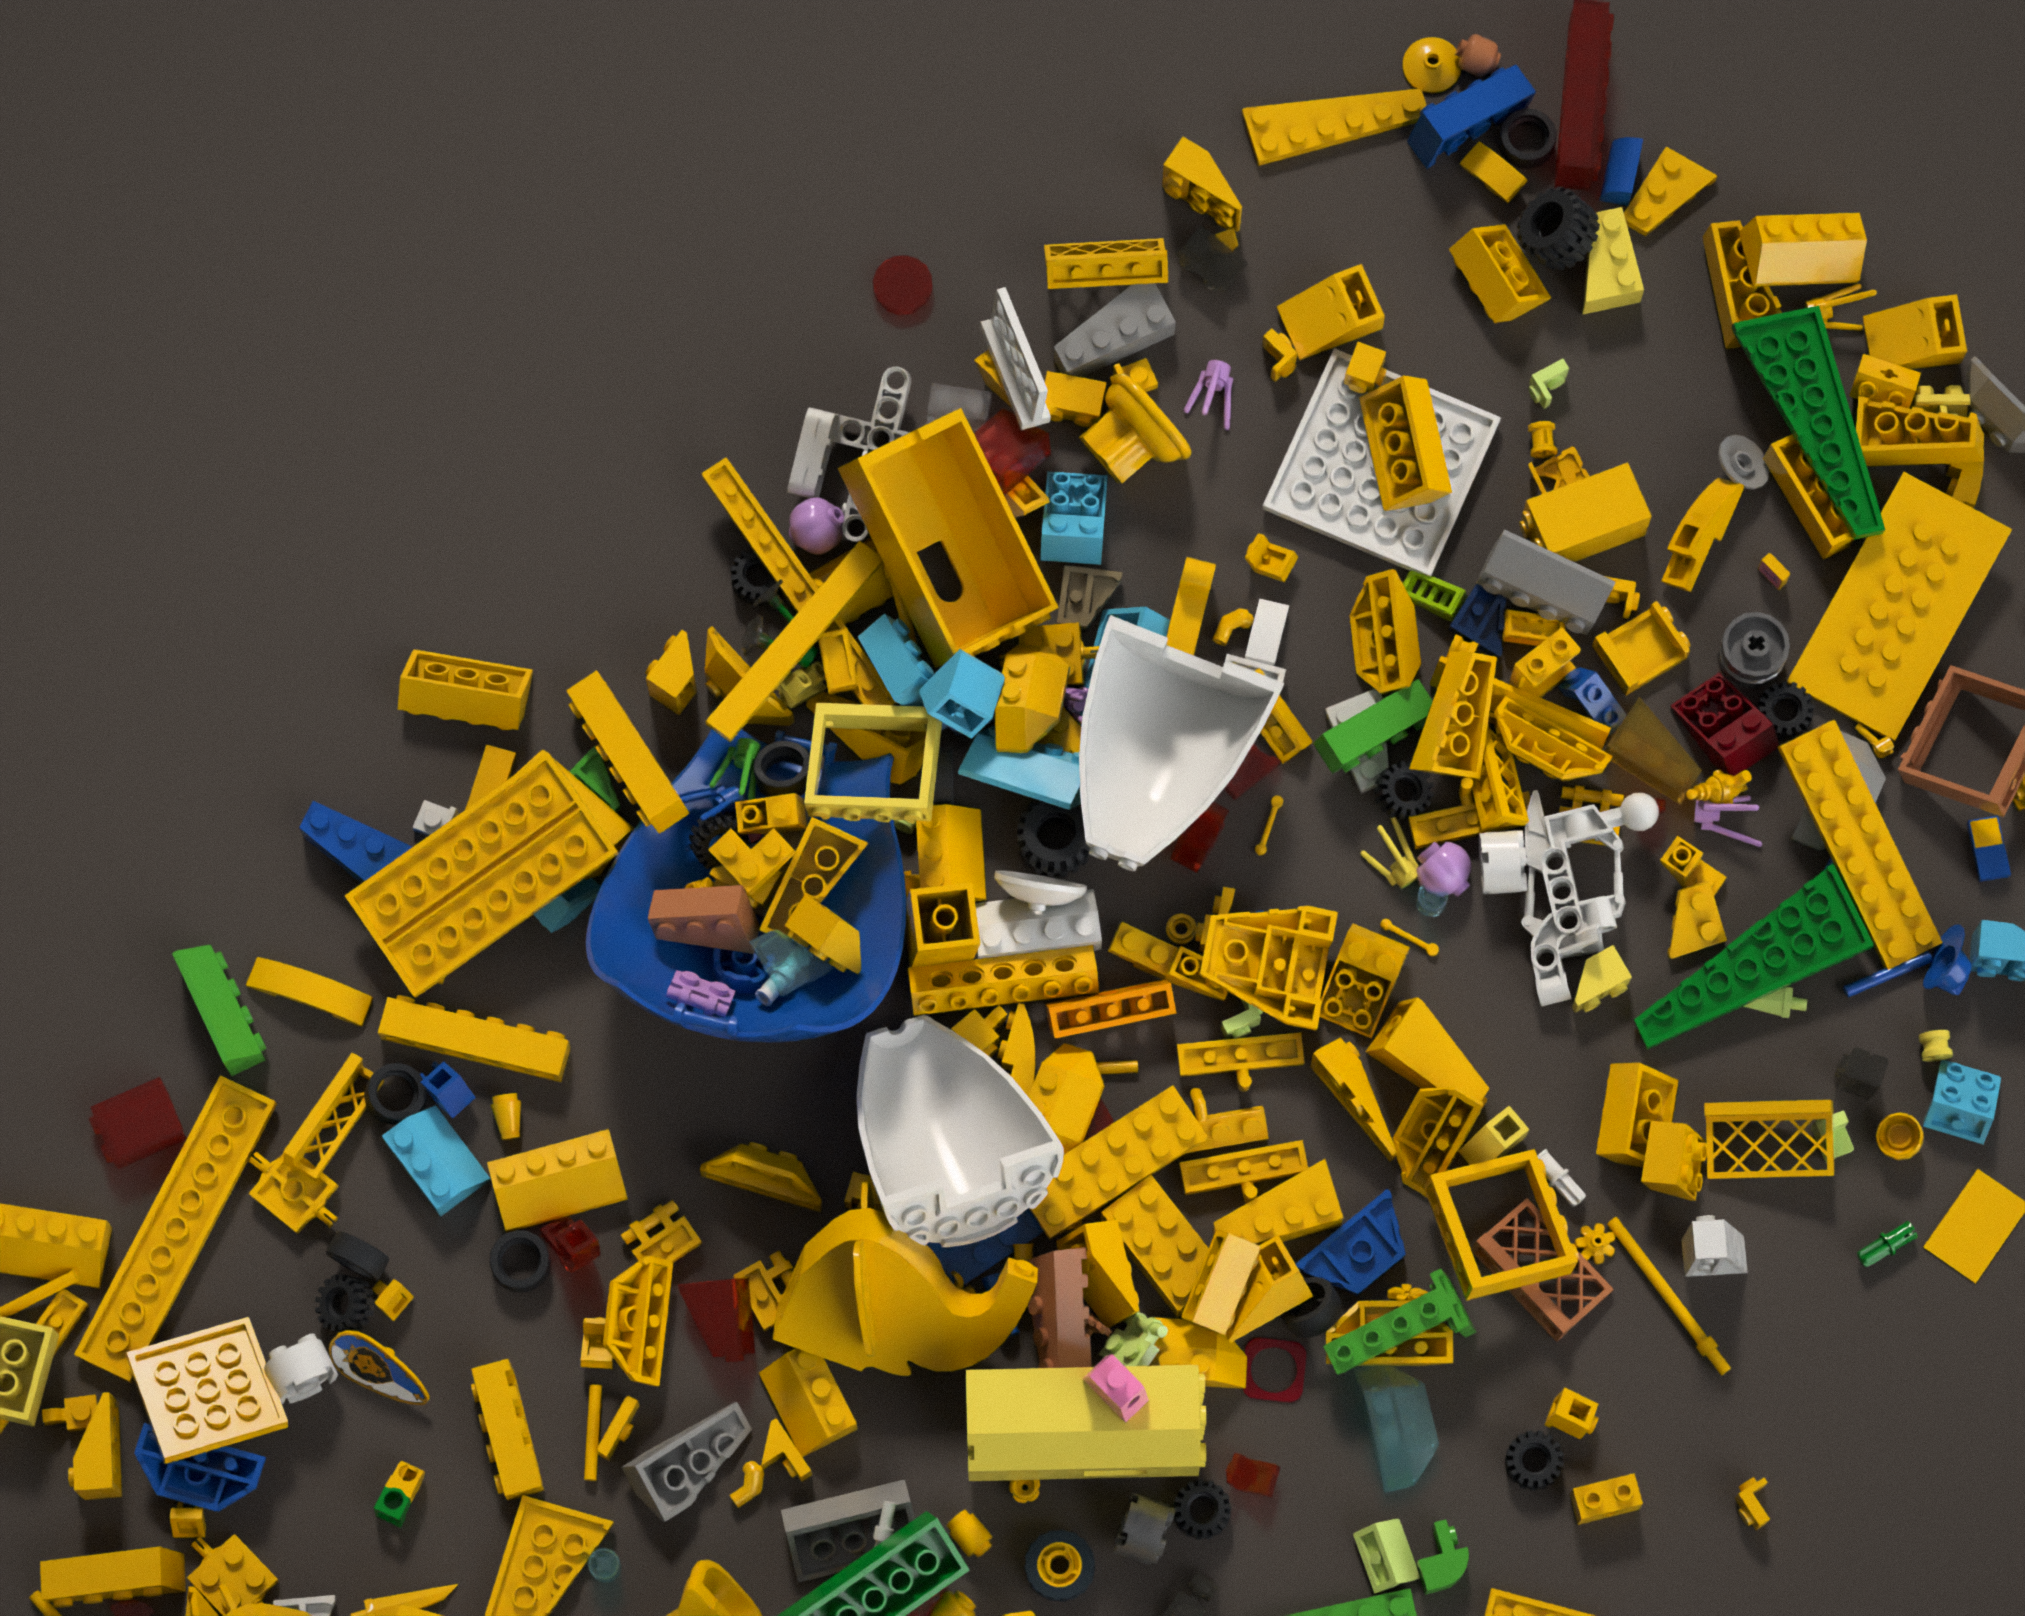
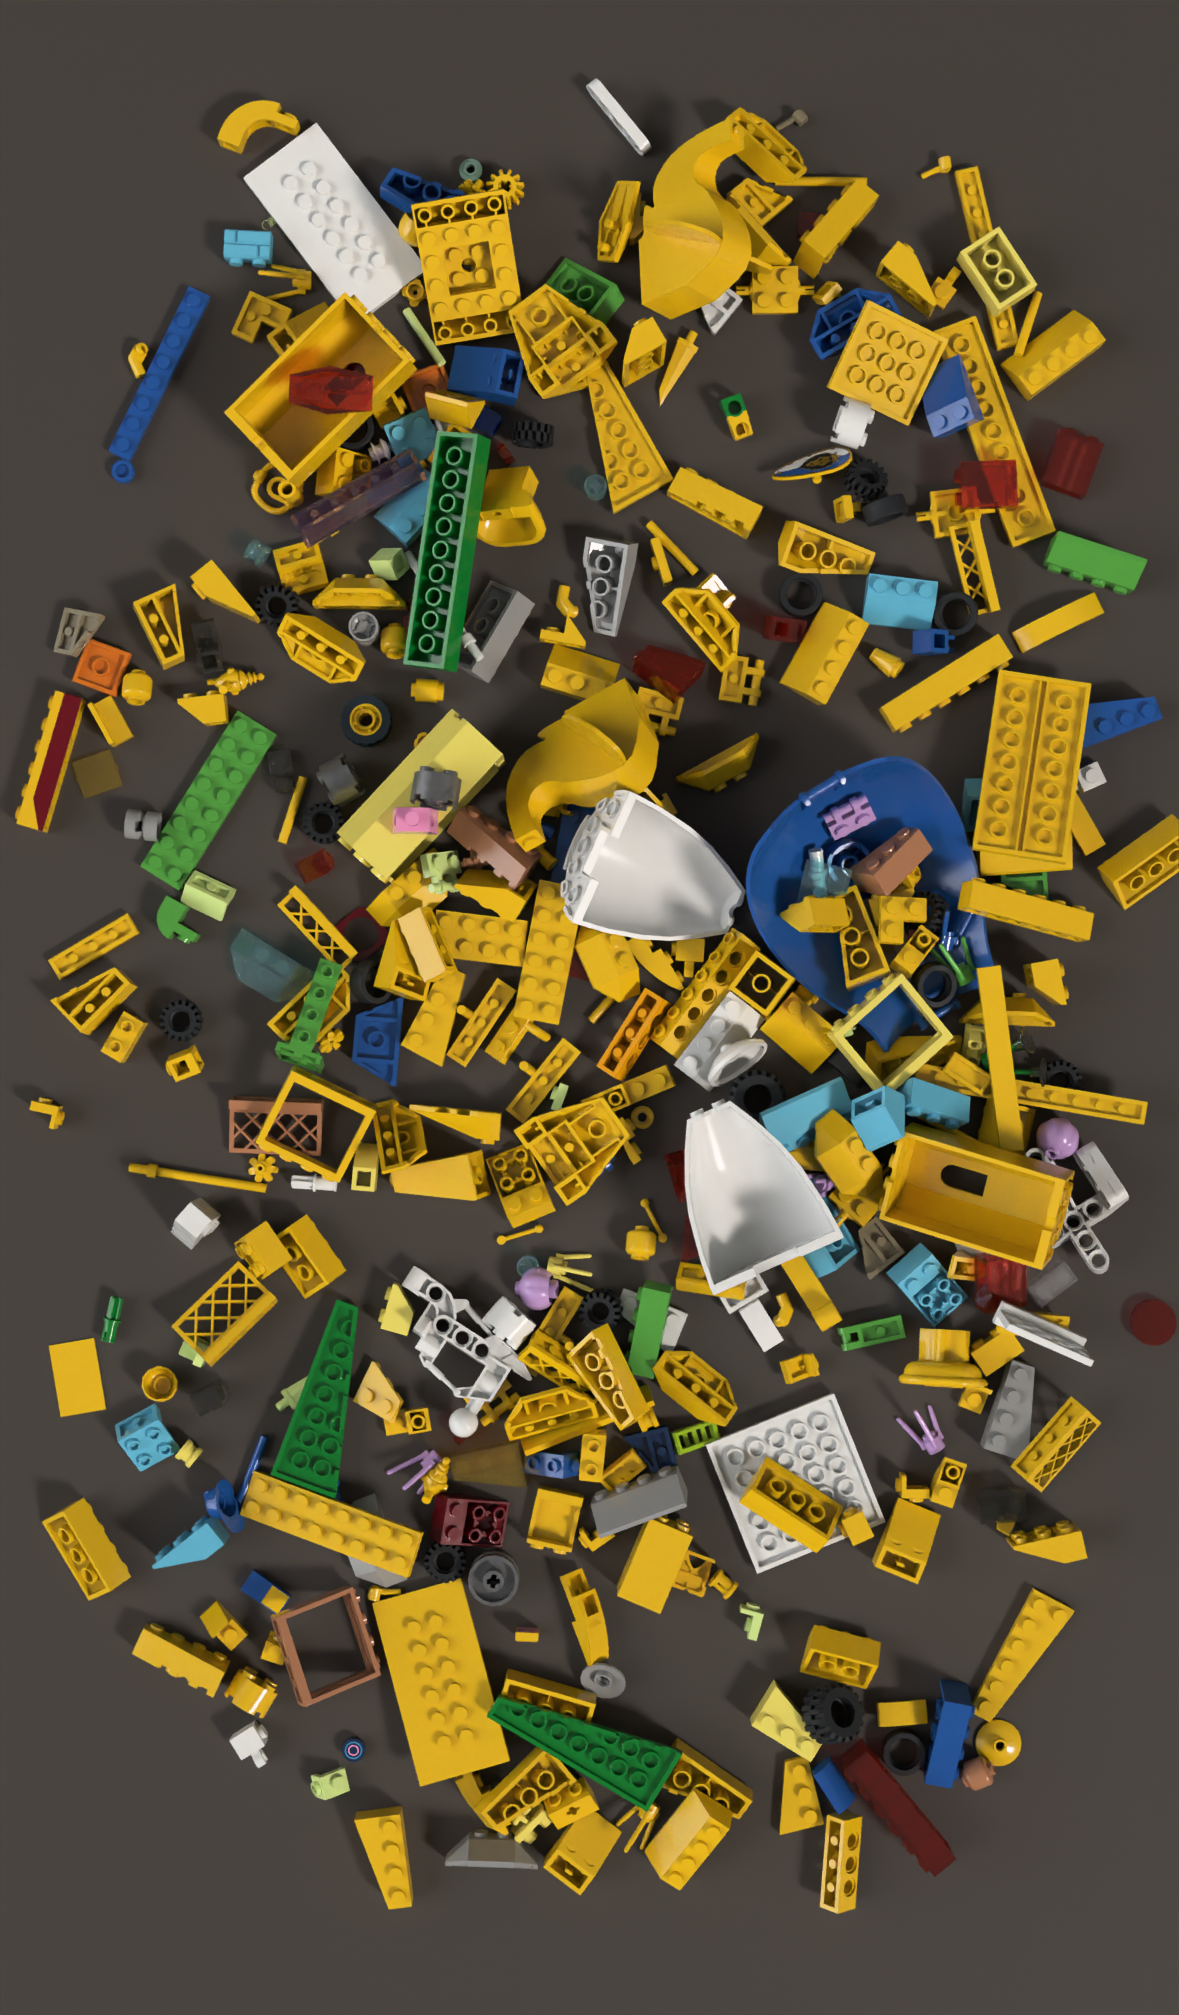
camera: 135 degrees right, 15 degrees up
(184, 1296) = (950, 399): none -> blue slope
(241, 1178) = (986, 485): none -> clear red panel
(465, 1288) = (814, 551): none -> yellow wedge
(1065, 1392) = (436, 789): none -> flat silver brick
(1169, 525) = (872, 1332): none -> bright green plate
(1219, 1555) = (292, 810): none -> yellow bar
(1240, 327) = (947, 1482): none -> yellow slope
(1299, 1419) = (320, 920): none -> yellow fence
(1302, 814) = (641, 1243): none -> yellow head
(1600, 1561) = (95, 1000): none -> yellow wedge
(1683, 98) = (841, 1862): none -> yellow brick

